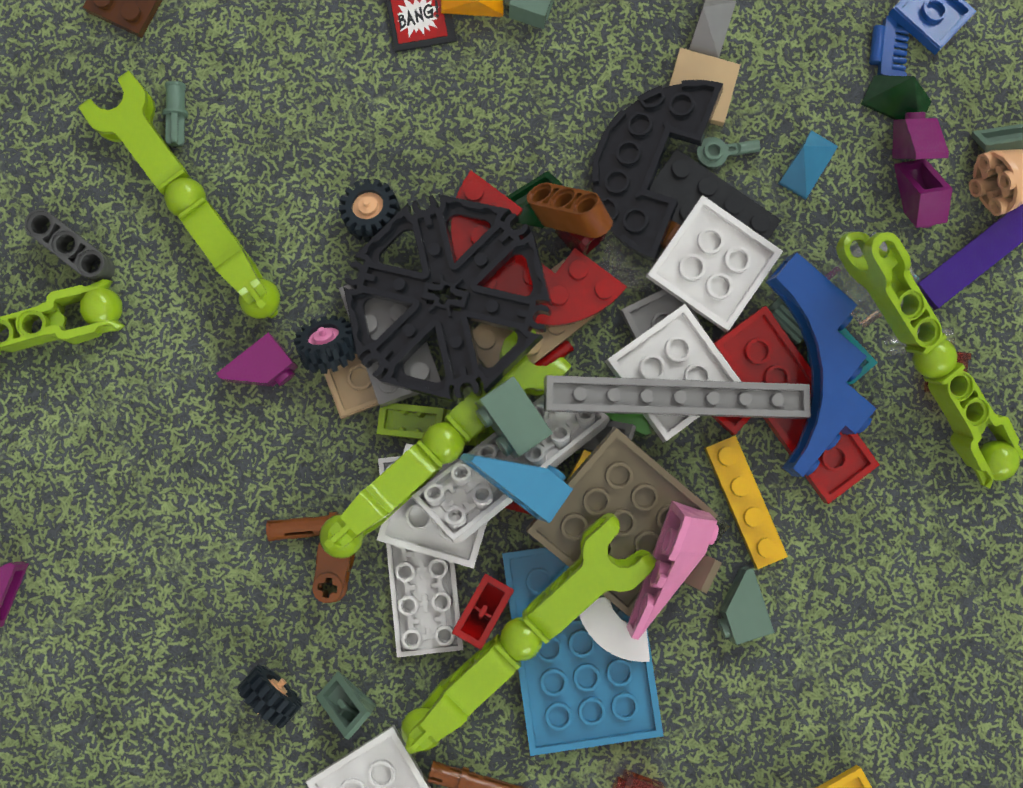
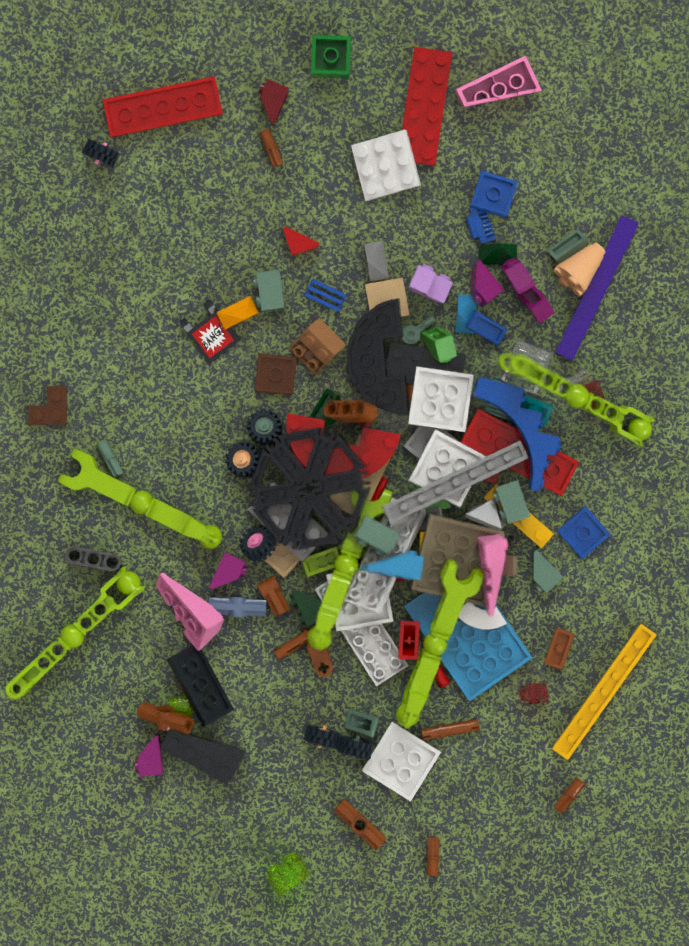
camera: 20 degrees left, 5 degrees up
(40, 543) = (165, 718): none -> dark orange piece
(73, 629) = (207, 755): none -> black wedge
(83, 536) = (181, 704): none -> clear neon green head
(124, 517) = (200, 685): none -> black plate
(178, 410) = (196, 615): none -> bright pink wedge
(246, 426) = (239, 606): none -> sand blue piece
(310, 428) = (272, 593): none -> dark orange piece
(313, 740) = (355, 747): none -> black wheel
(352, 476) = (308, 606): none -> dark green slope
(426, 176) = (264, 427): none -> black wheel
(483, 113) = (275, 374): none -> reddish brown tile
(504, 697) = (441, 678): none -> red pin
(565, 100) = (317, 346): none -> medium nougat slope
(597, 16) = (310, 288): none -> blue tile
(700, 474) = (486, 514): none -> light grey slope
(711, 741) = (559, 648): none -> dark orange plate
(749, 474) = (511, 502): none -> sand green brick
(752, 183) = (439, 344): none -> bright green slope
(775, 90) = (429, 285): none -> lavender brick
(831, 196) = (486, 328): none -> blue tile
(833, 577) = (583, 532): none -> blue tile
(859, 131) = (483, 285): none -> magenta slope

